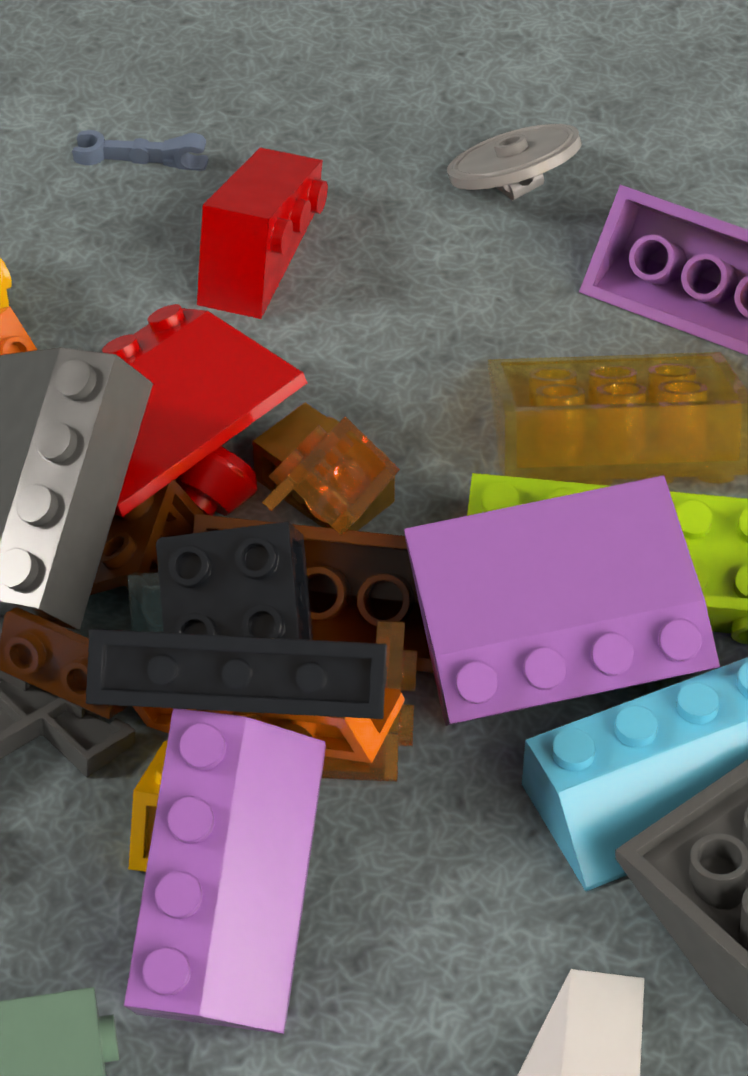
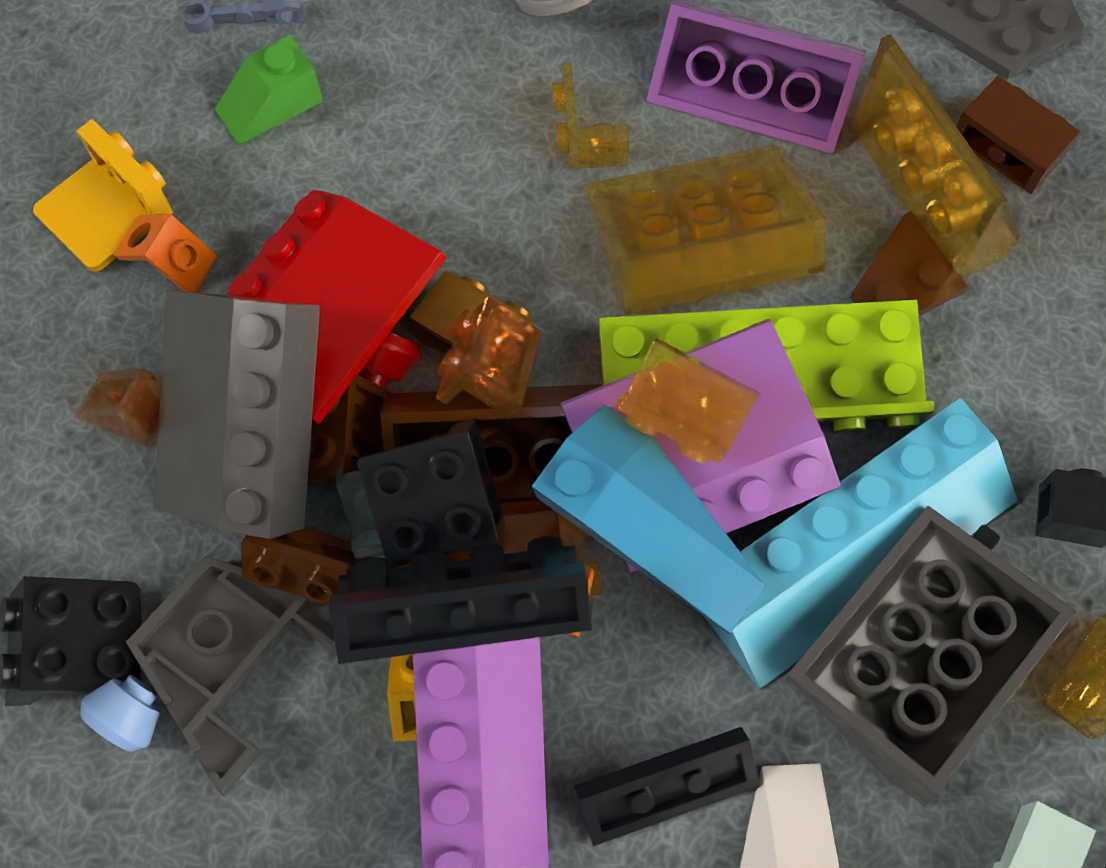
camera: 10 degrees left, 20 degrees up
(148, 219) = (268, 90): none -> bright green slope
(255, 229) = (365, 85): red wedge -> none
(447, 961) = (667, 786): none -> black plate
(475, 643) = (642, 509): none -> dark azure wedge
(498, 317) = (590, 146): none -> clear yellow bracket
(550, 529) = (687, 403): none -> clear yellow bracket

